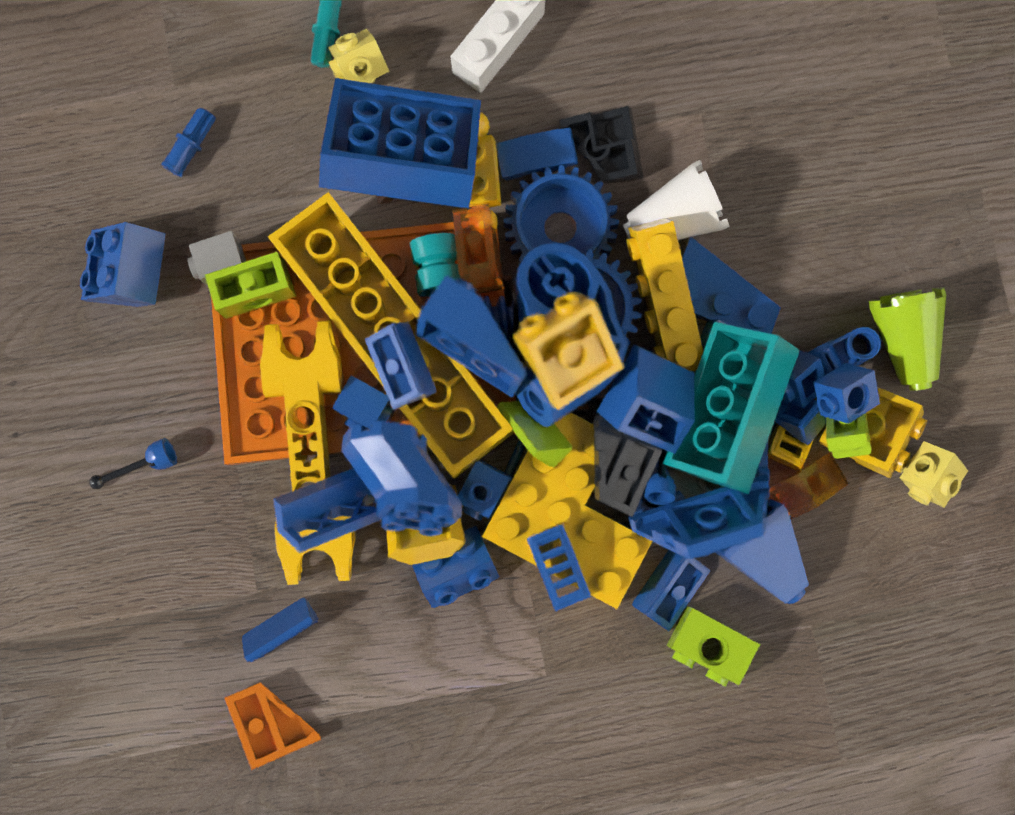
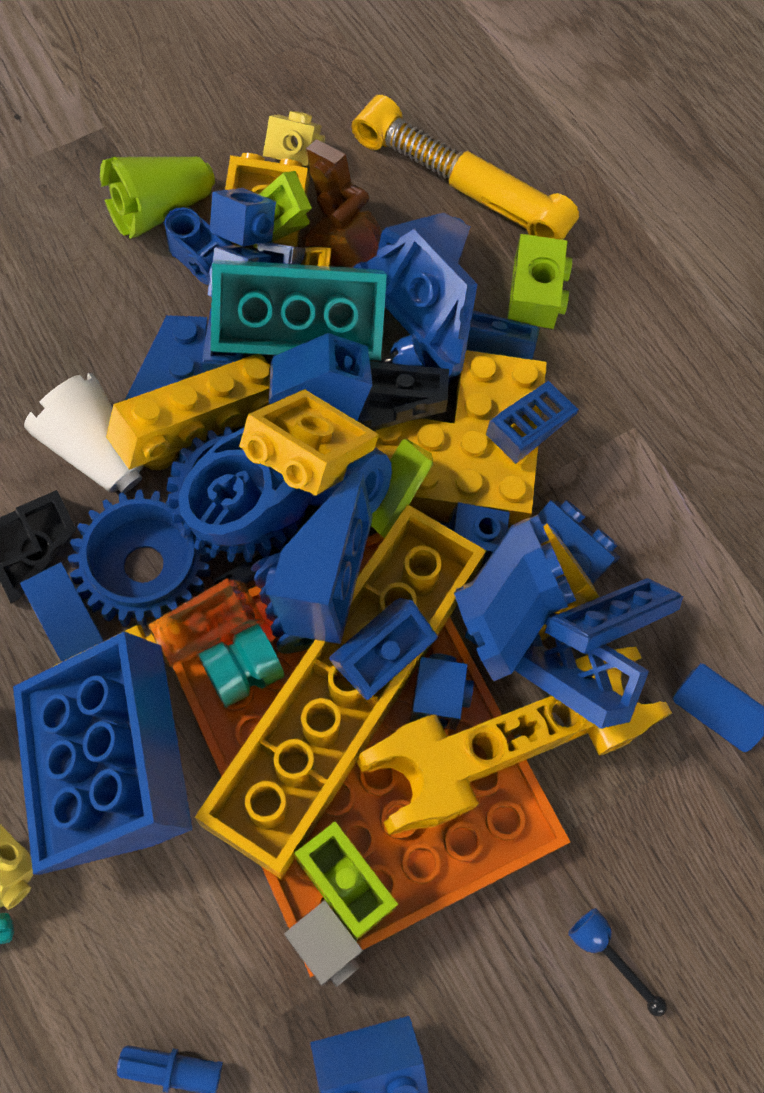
camera: 120 degrees left, 15 degrees down
(369, 563) = (614, 615): none -> blue tile
(782, 681) = (540, 214): none -> yellow piece
(857, 490) = (333, 183): none -> reddish brown plate

